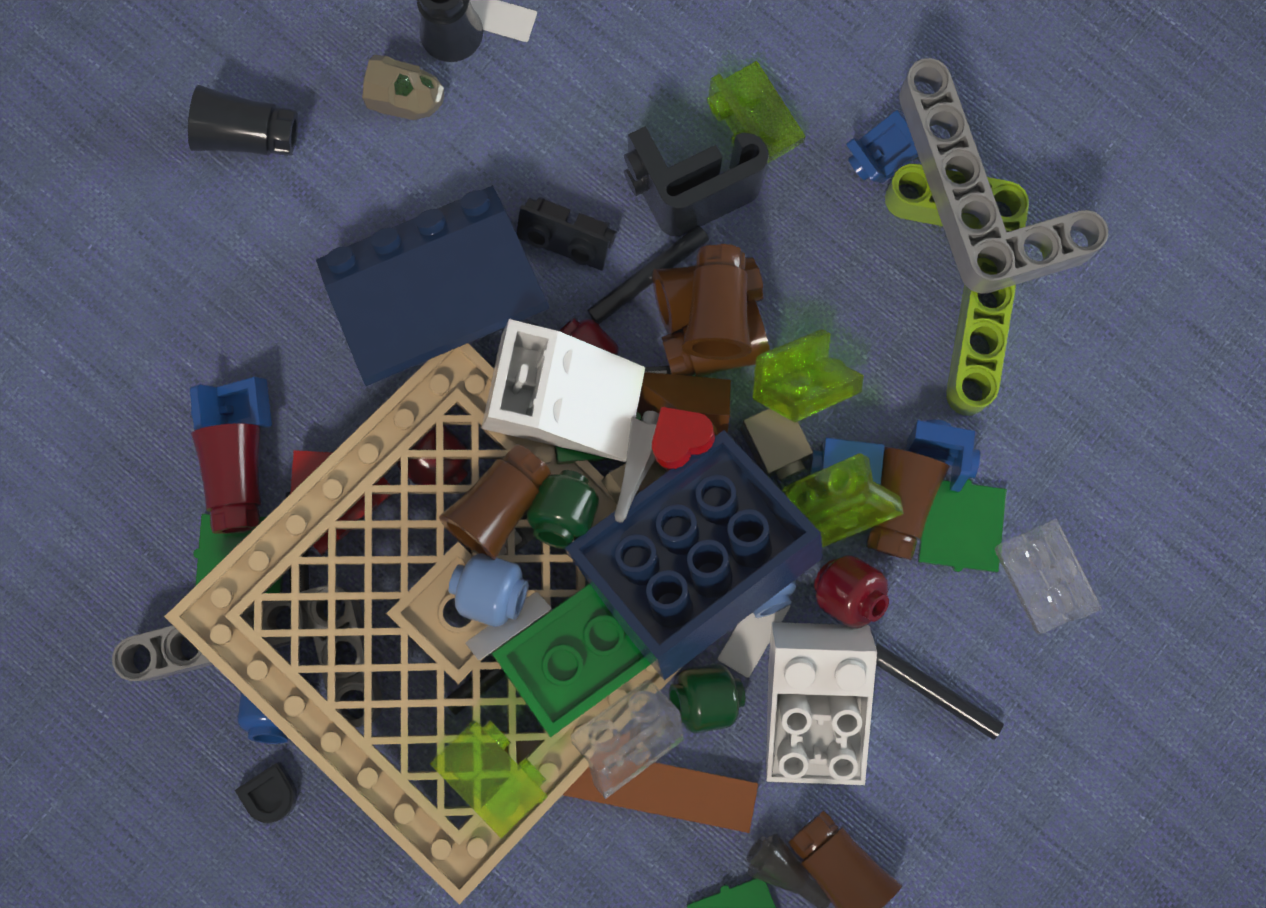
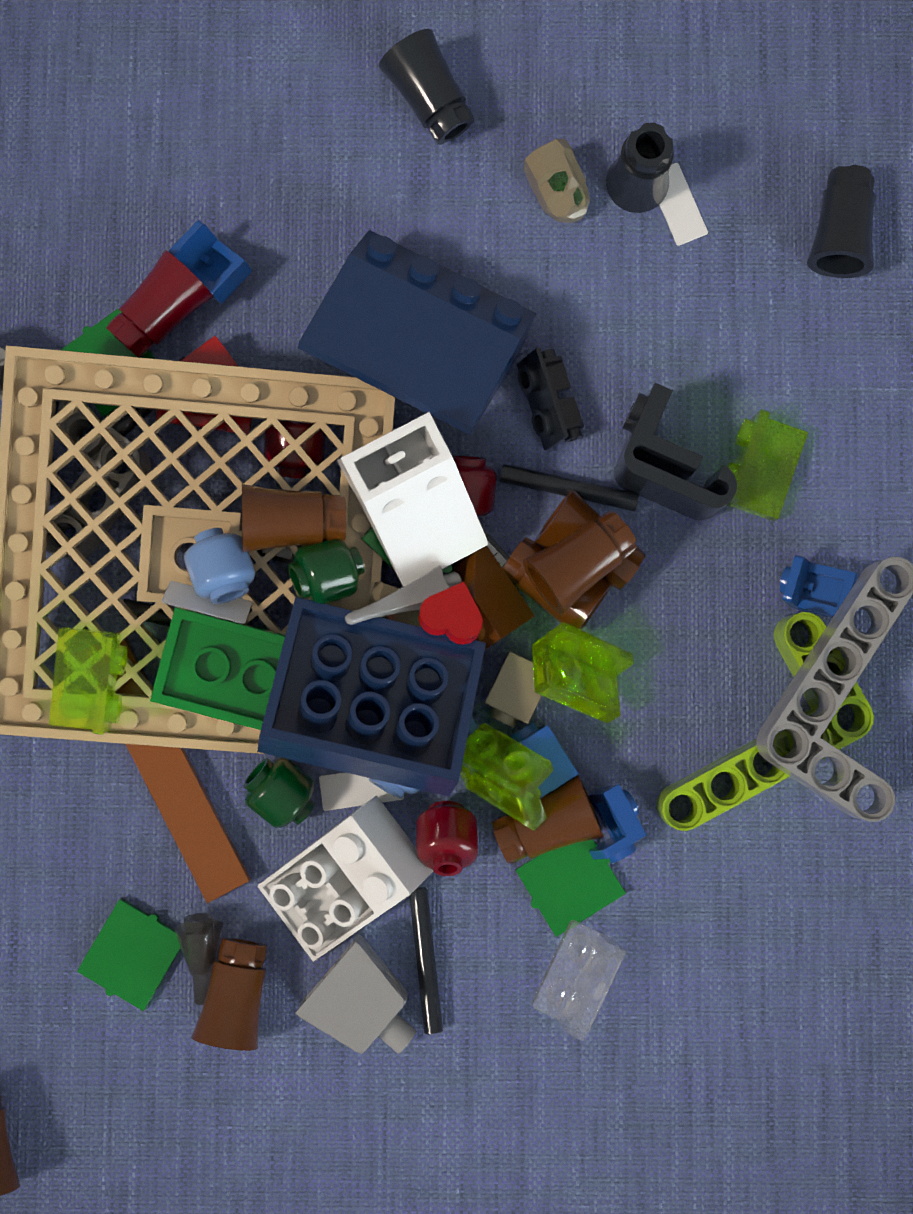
camera: 55 degrees right, 5 degrees up
(628, 737) = (201, 757): clear bracket -> none
(927, 771) = (359, 1001): none -> light grey torso

